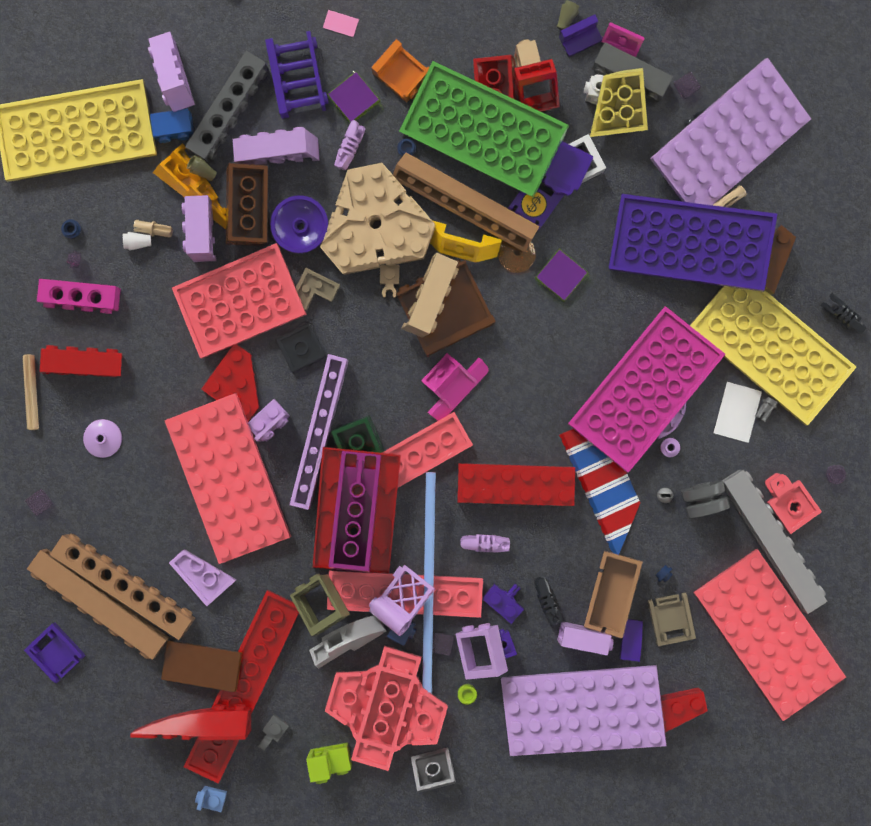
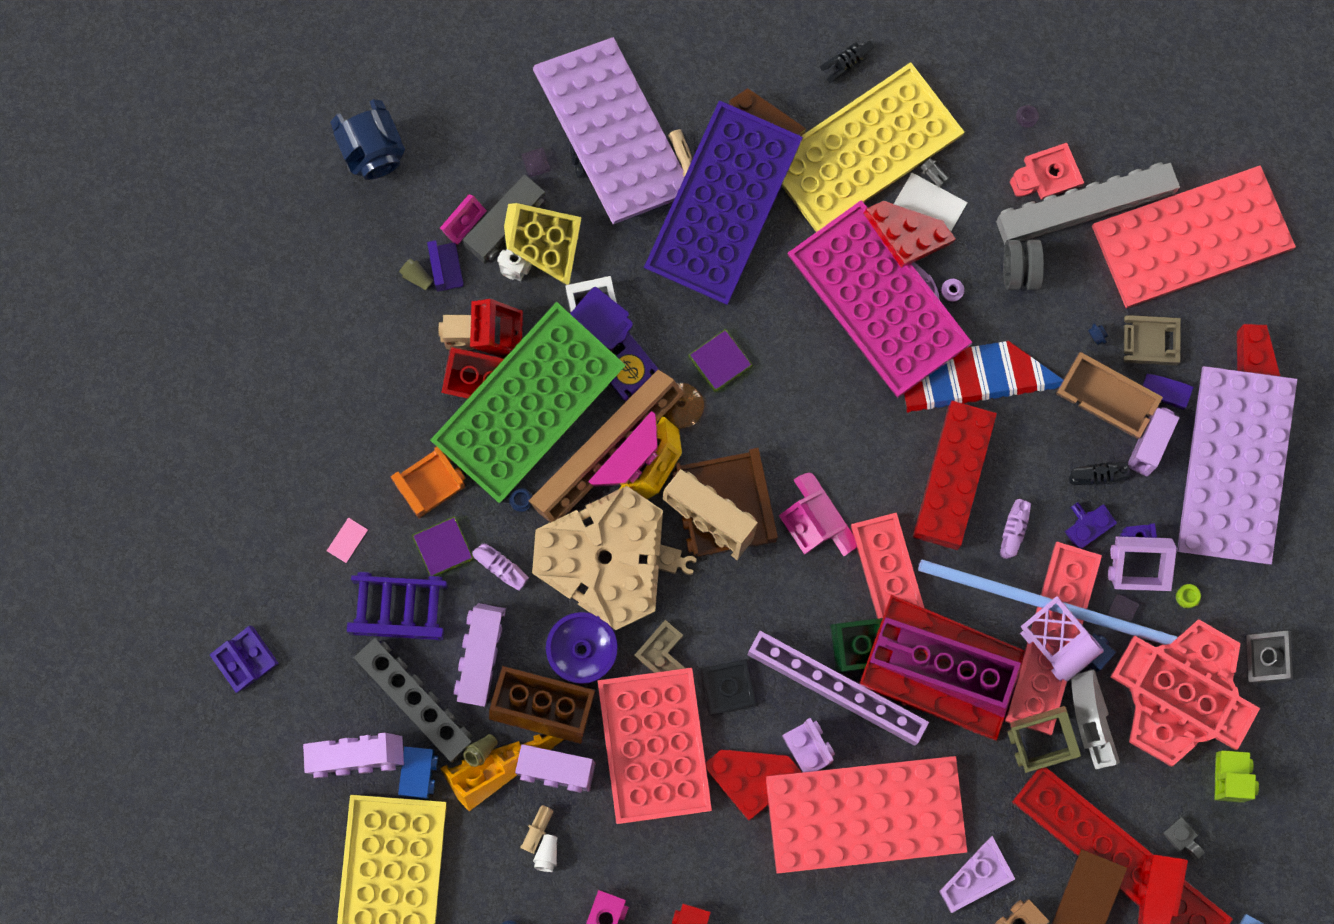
camera: 80 degrees left, 10 degrees down
(459, 220) = (630, 456): none -> dark pink wedge
(665, 491) = (1001, 310): light grey hinge -> none
(708, 398) = (907, 232): none -> plate

